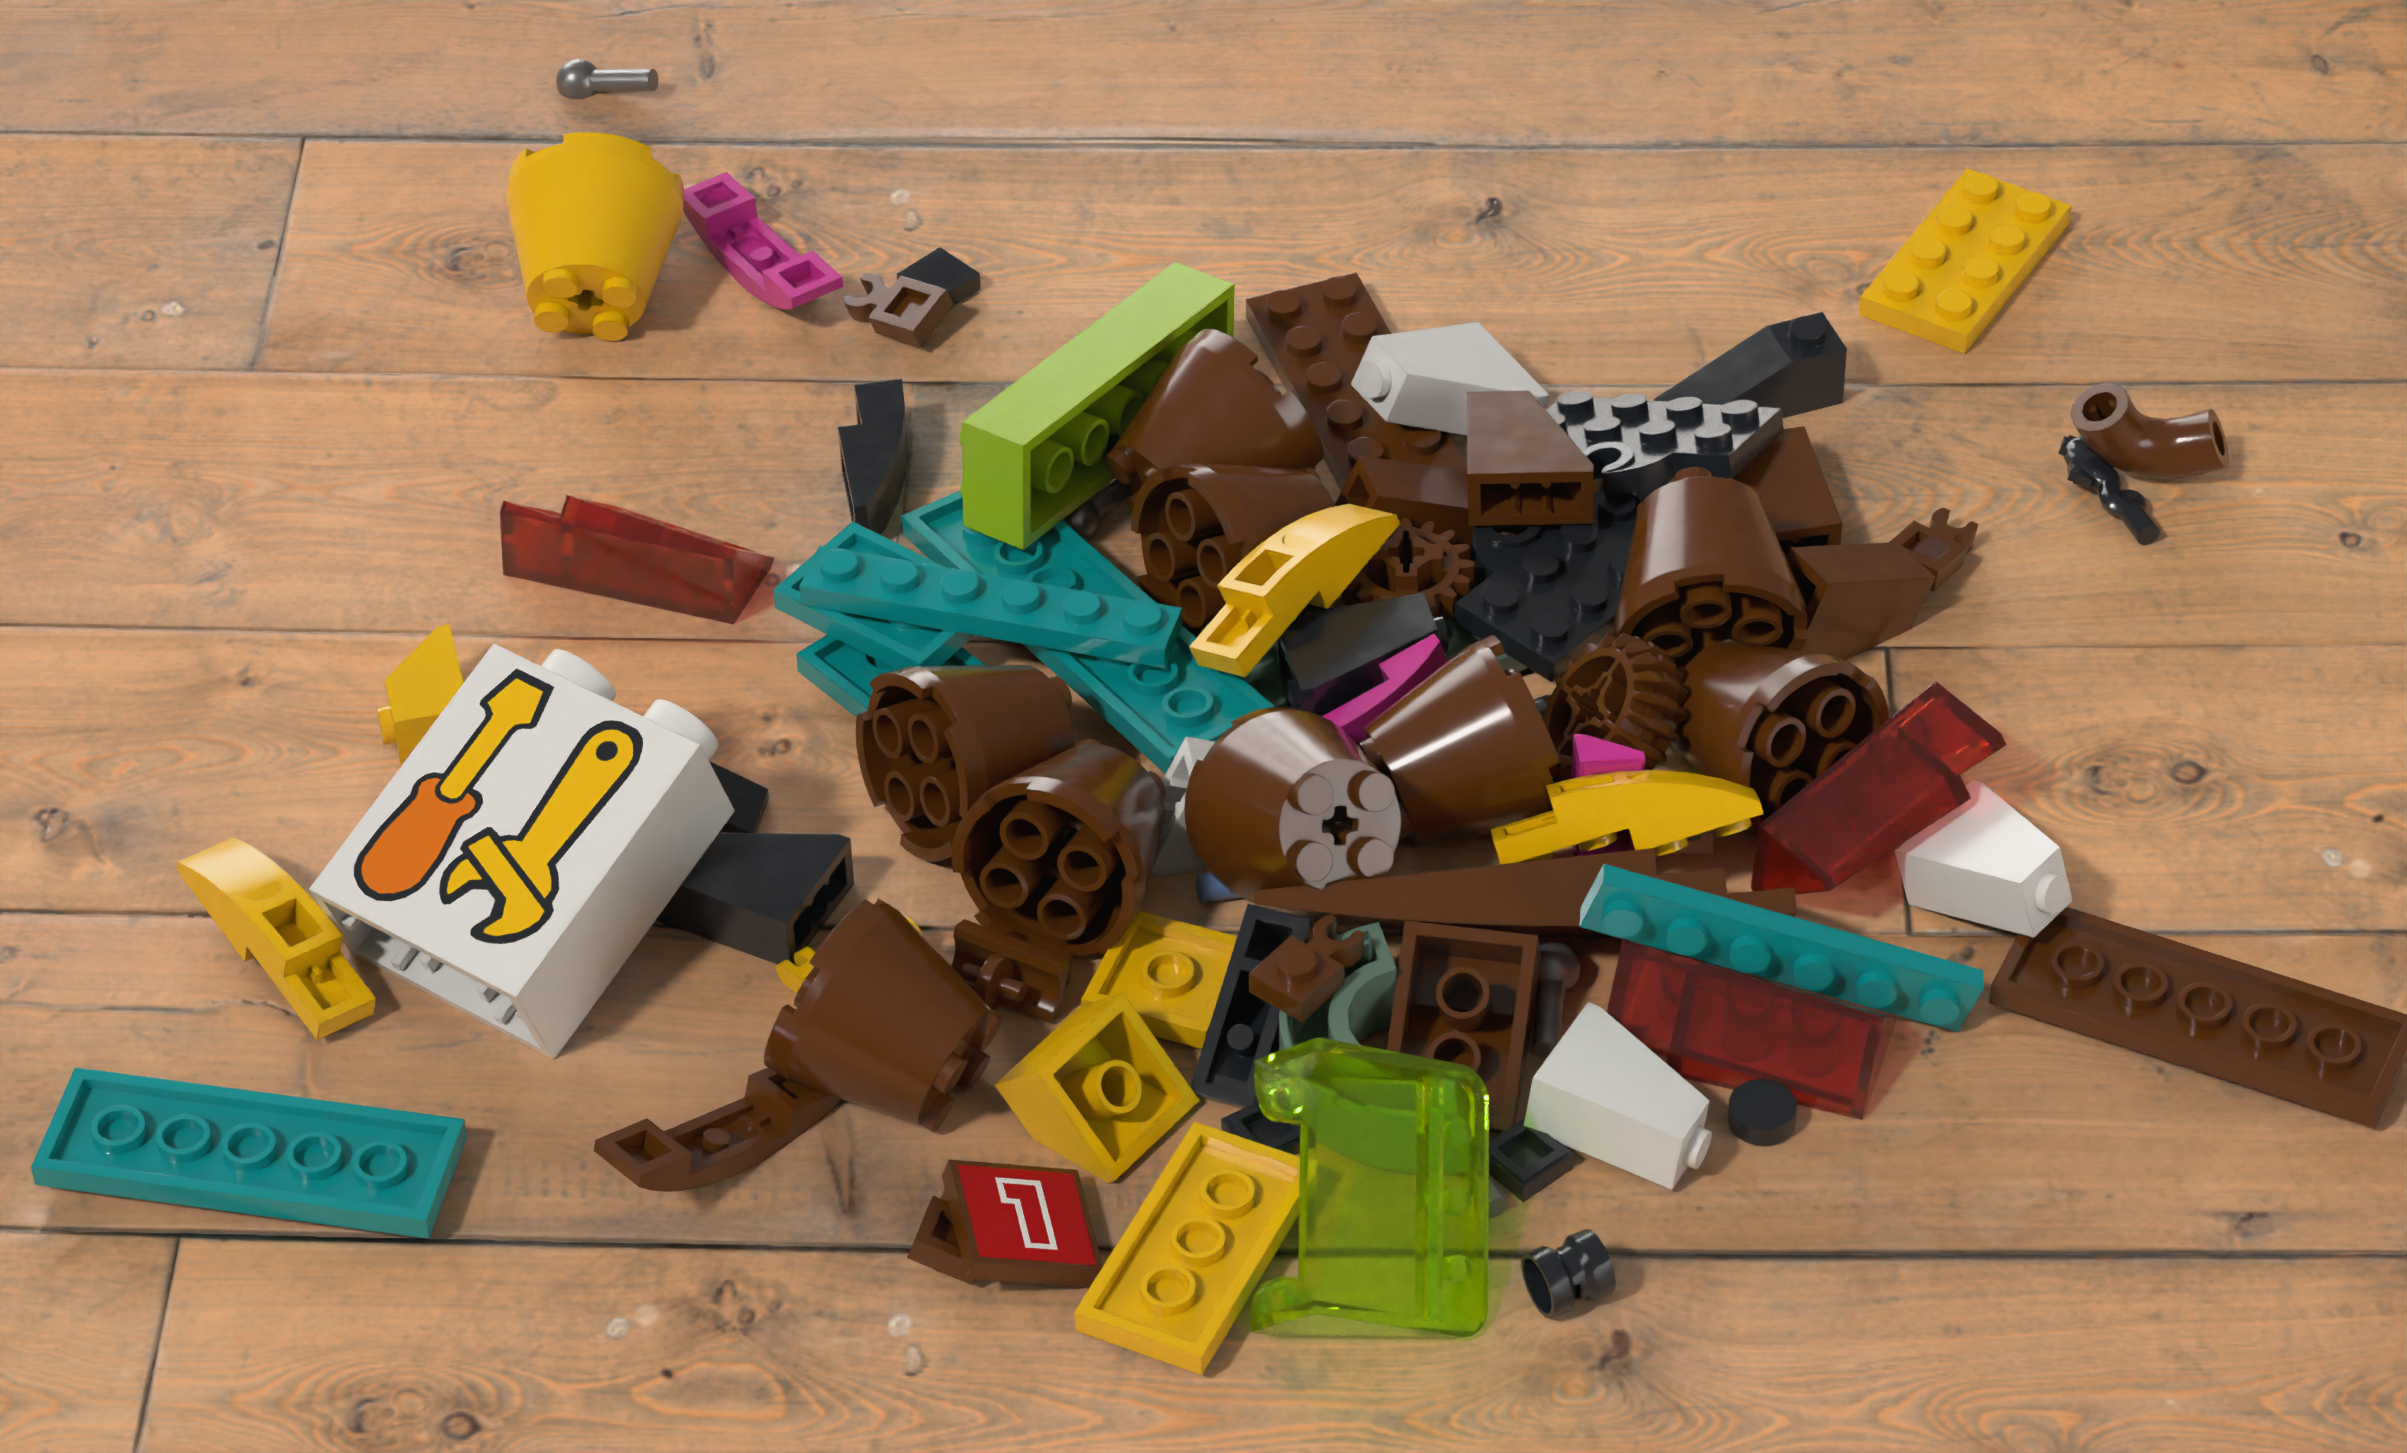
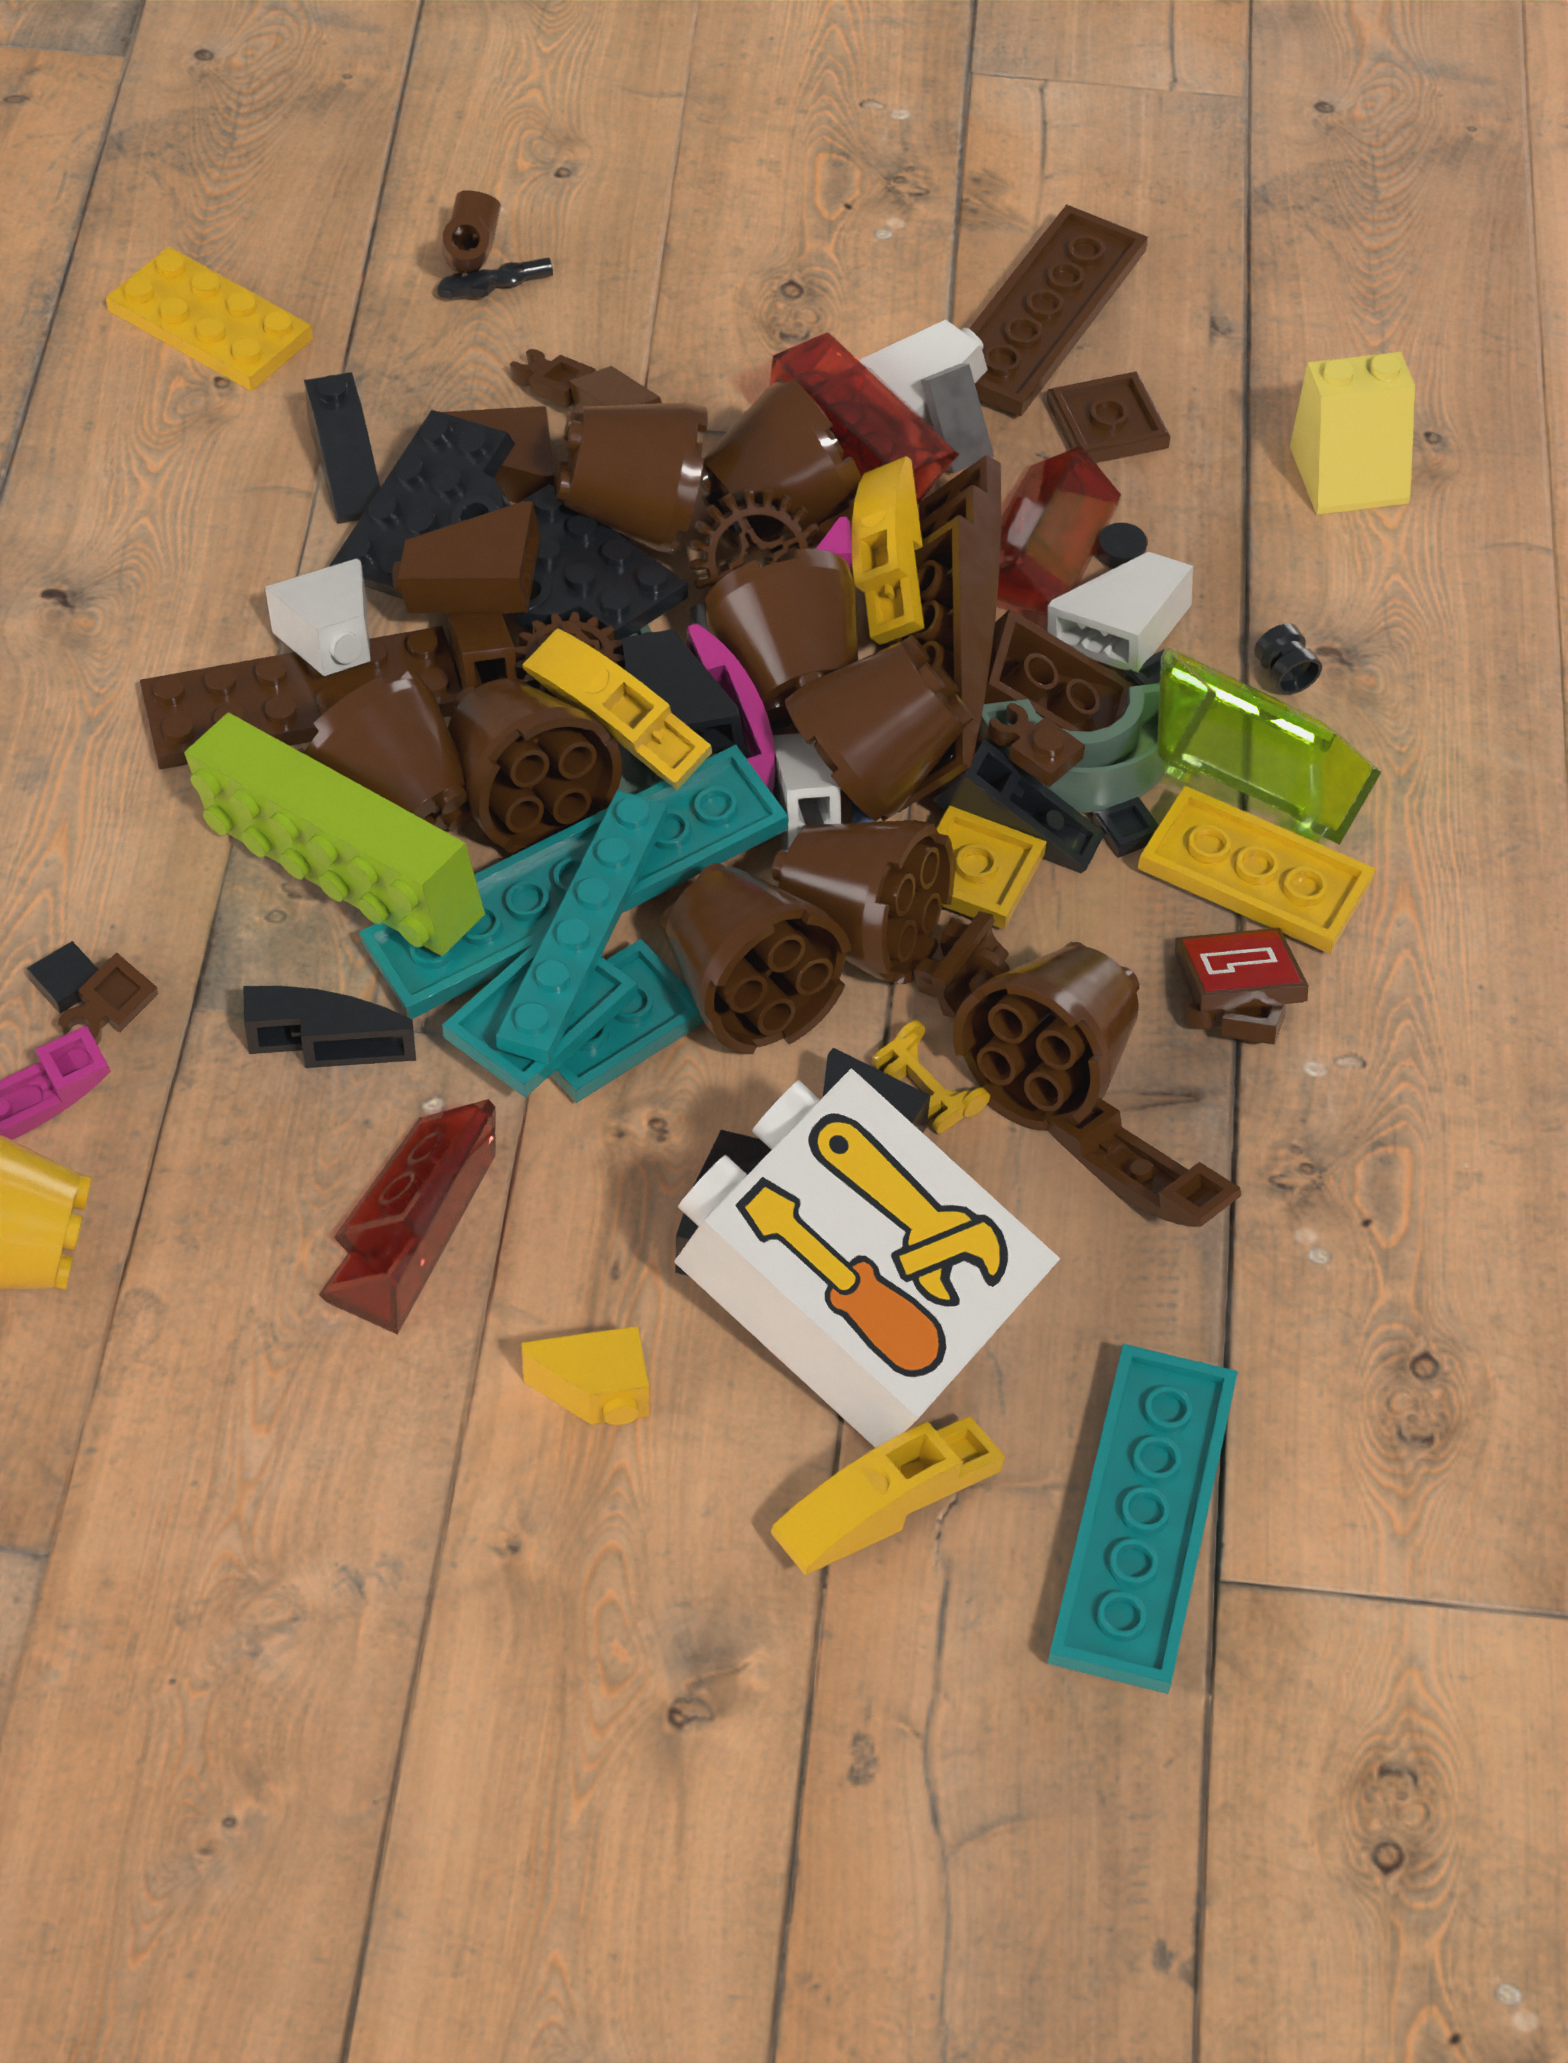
camera: 90 degrees left, 10 degrees up
(1098, 1088) = (1094, 909): yellow slope -> none
(1781, 948) = (1024, 487): teal plate -> none
(1928, 897) = (958, 414): none -> flat silver tile
(1989, 1320) = (1355, 432): none -> light yellow slope
(2011, 1095) = (1109, 417): none -> reddish brown tile

